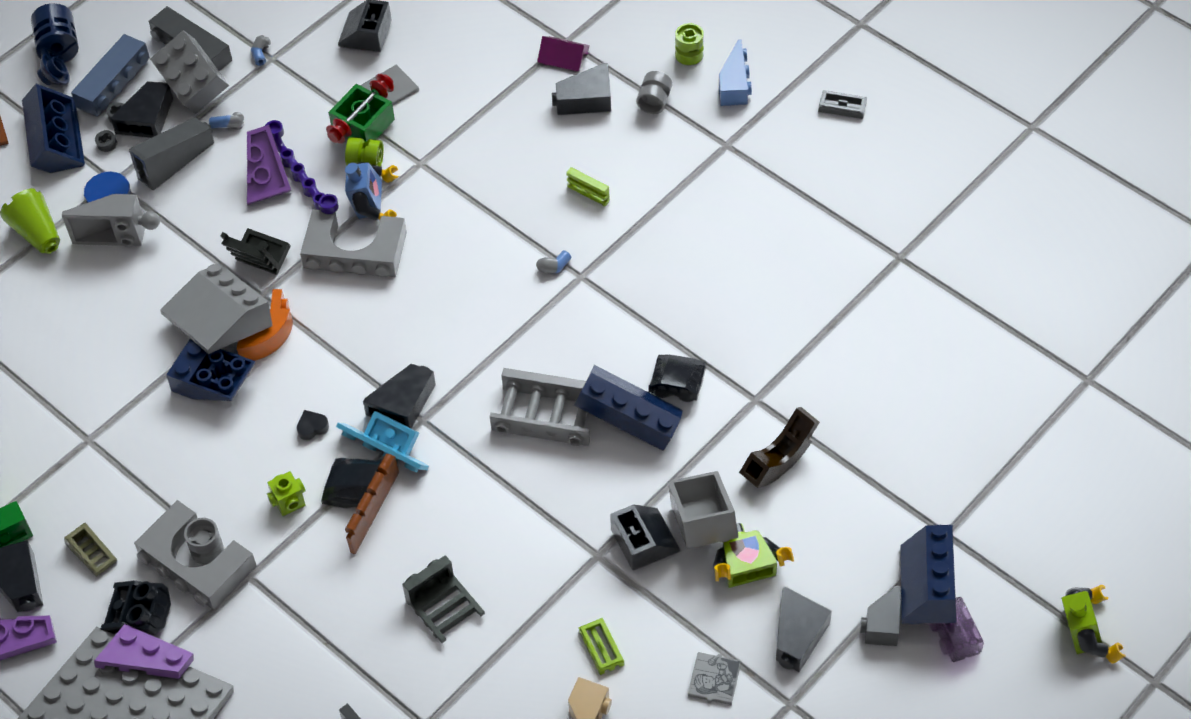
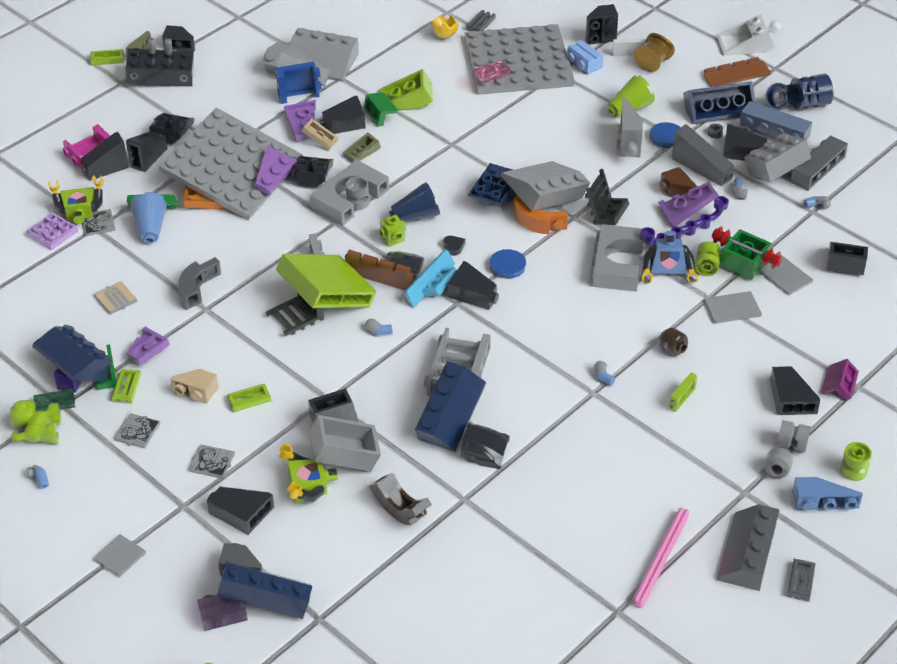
camera: 90 degrees right, 10 degrees down
(59, 606) = (318, 136): none -> tan tile
(218, 178) = (676, 182): none -> reddish brown slope
(239, 464) = (416, 205): none -> dark blue cone
(322, 587) = (315, 245): none -> light grey plate
(353, 363) = (507, 263): none -> blue tile
(406, 554) = (325, 280): none -> lime brick
(439, 141) = (732, 307): none -> light grey piece
(473, 504) = (378, 329): none -> arm
(507, 191) = (673, 341): none -> dark brown head
(691, 108) = (778, 462): none -> light grey head
(809, 138) = (748, 546): none -> dark grey slope
(826, 215) = (660, 558): none -> bright pink axle

